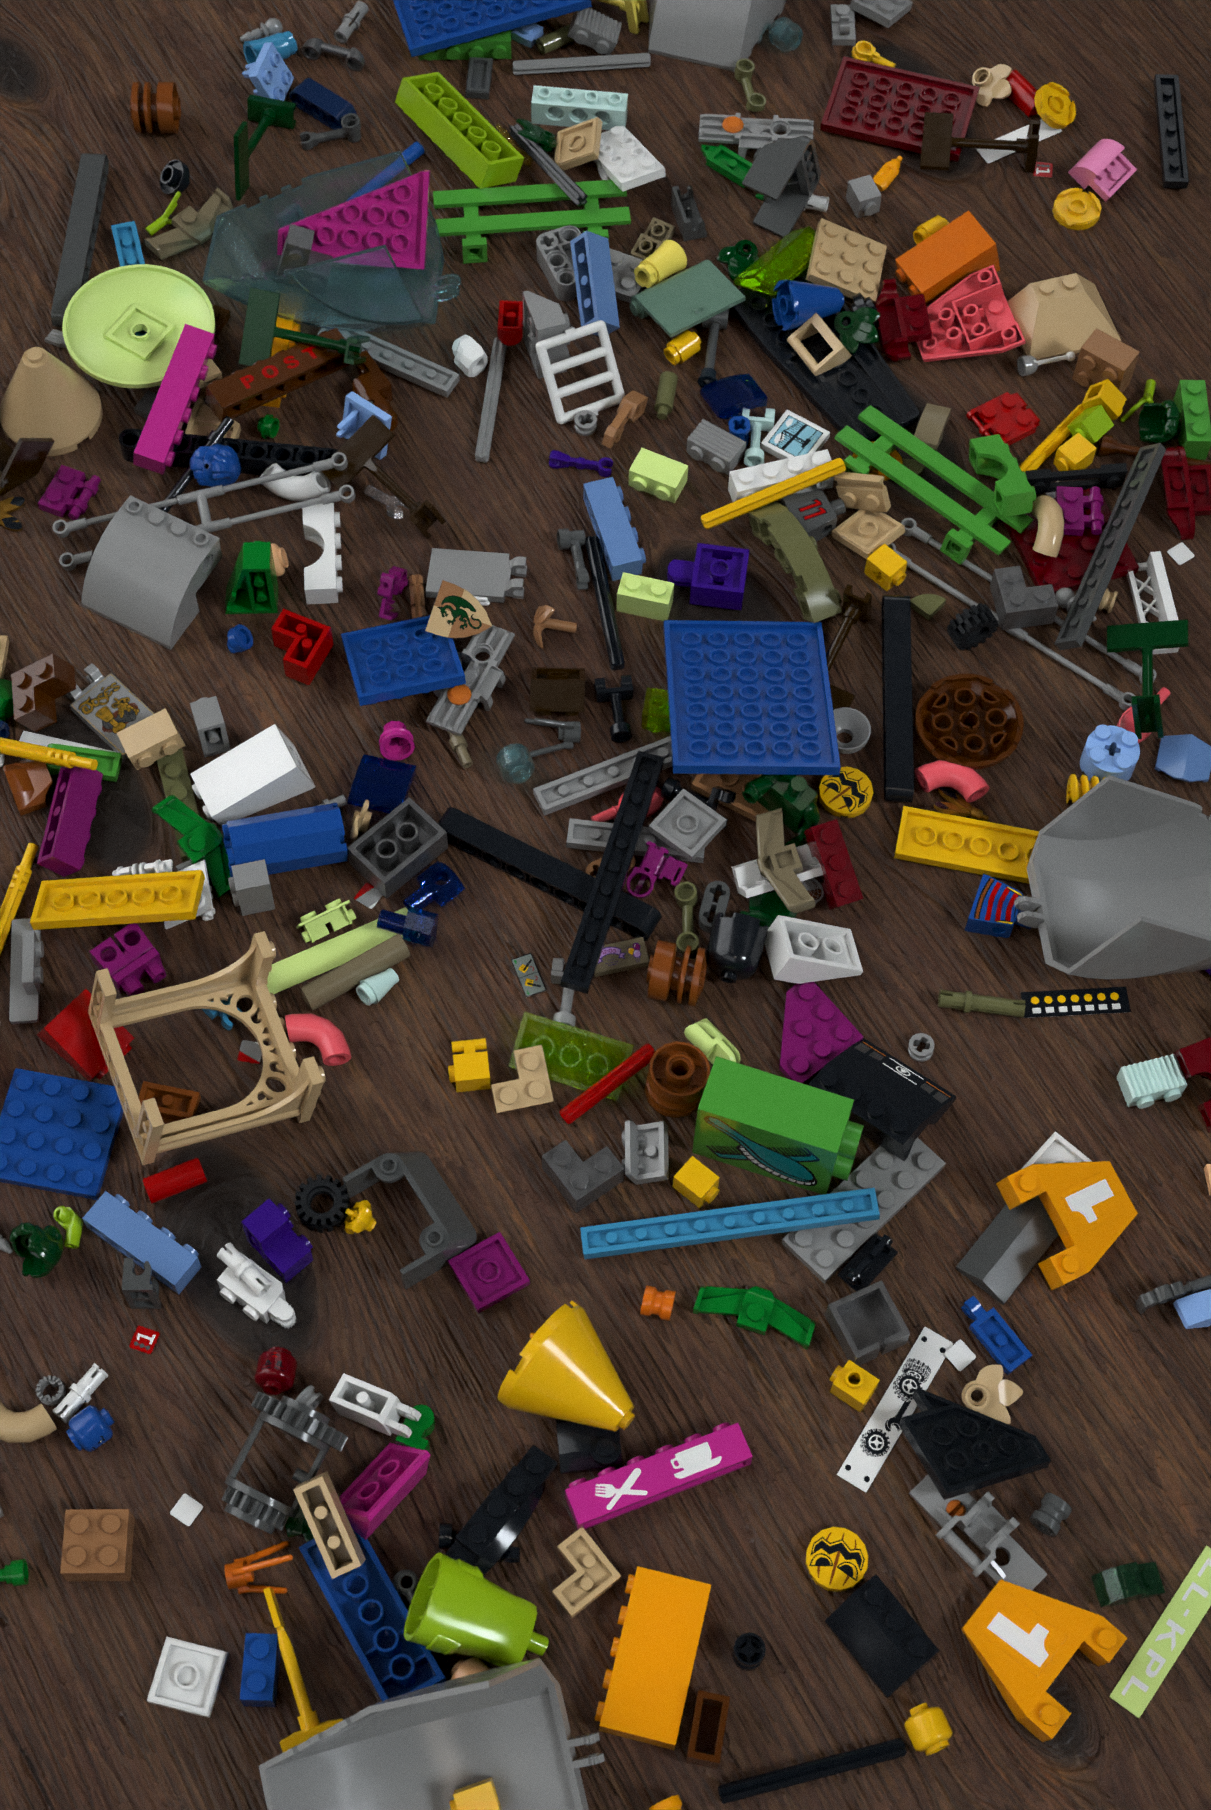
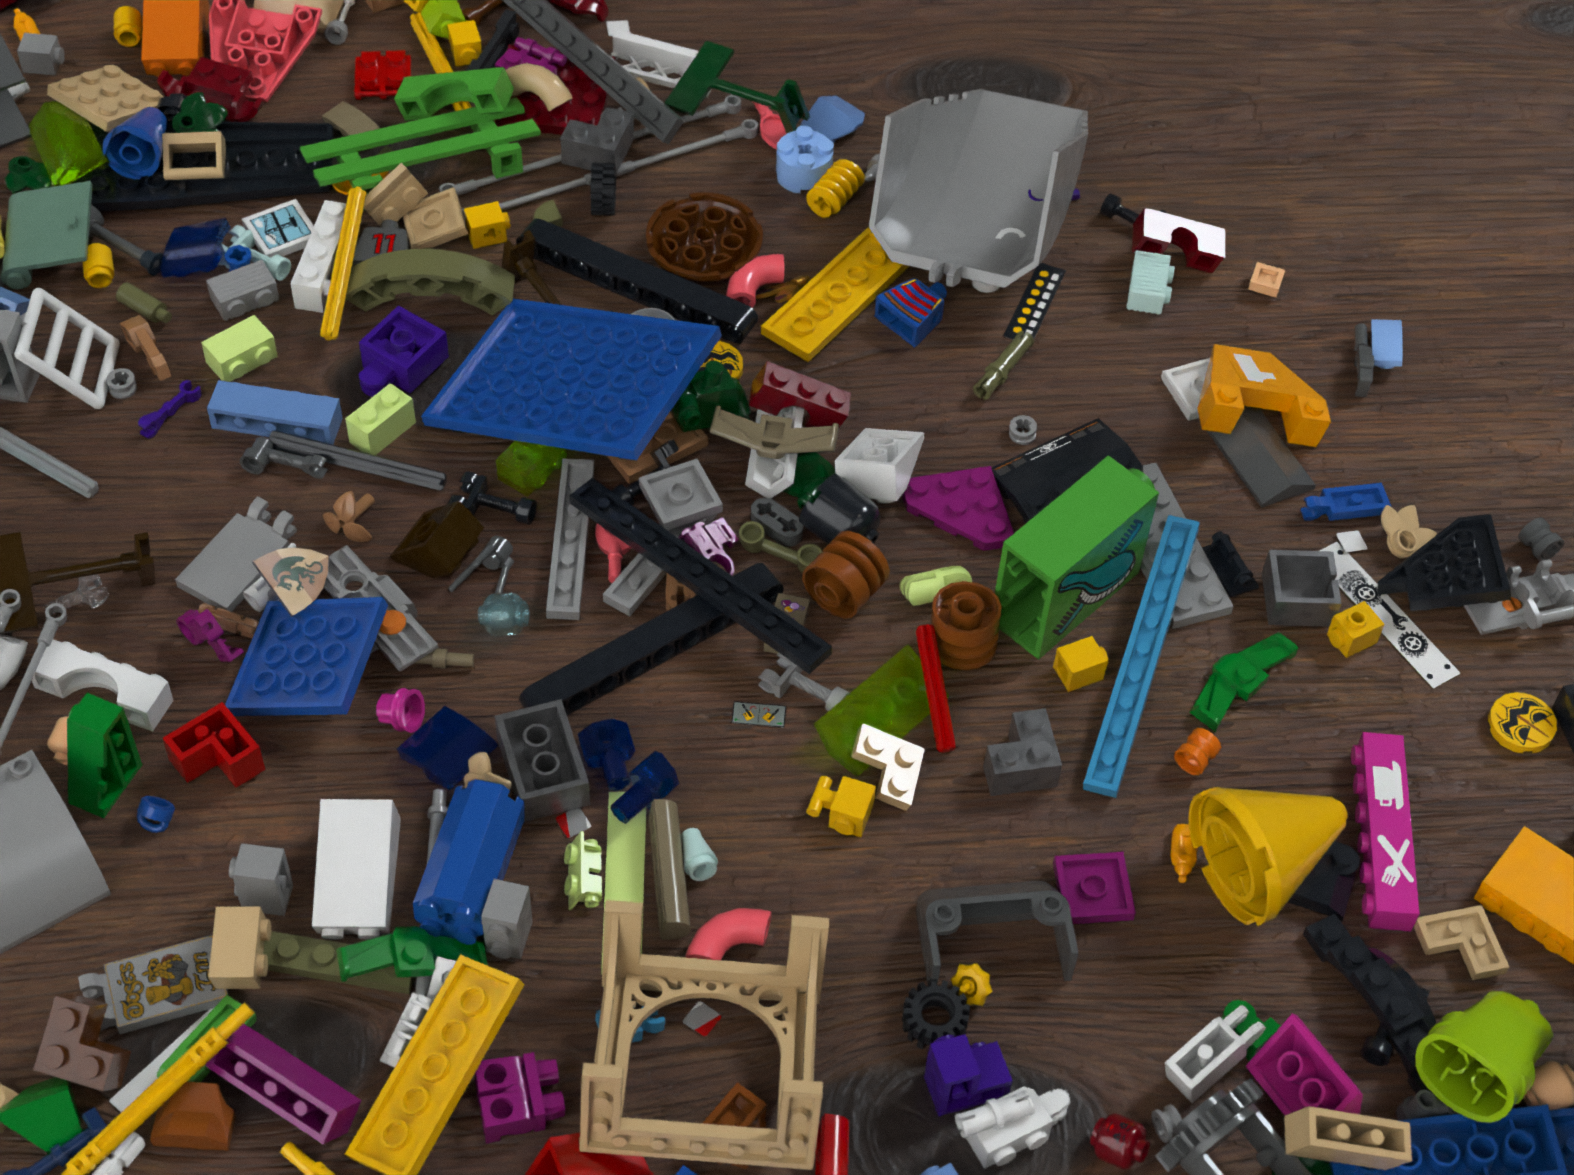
camera: 65 degrees left, 10 degrees down
(646, 1152) = (1025, 688): light grey bracket -> none

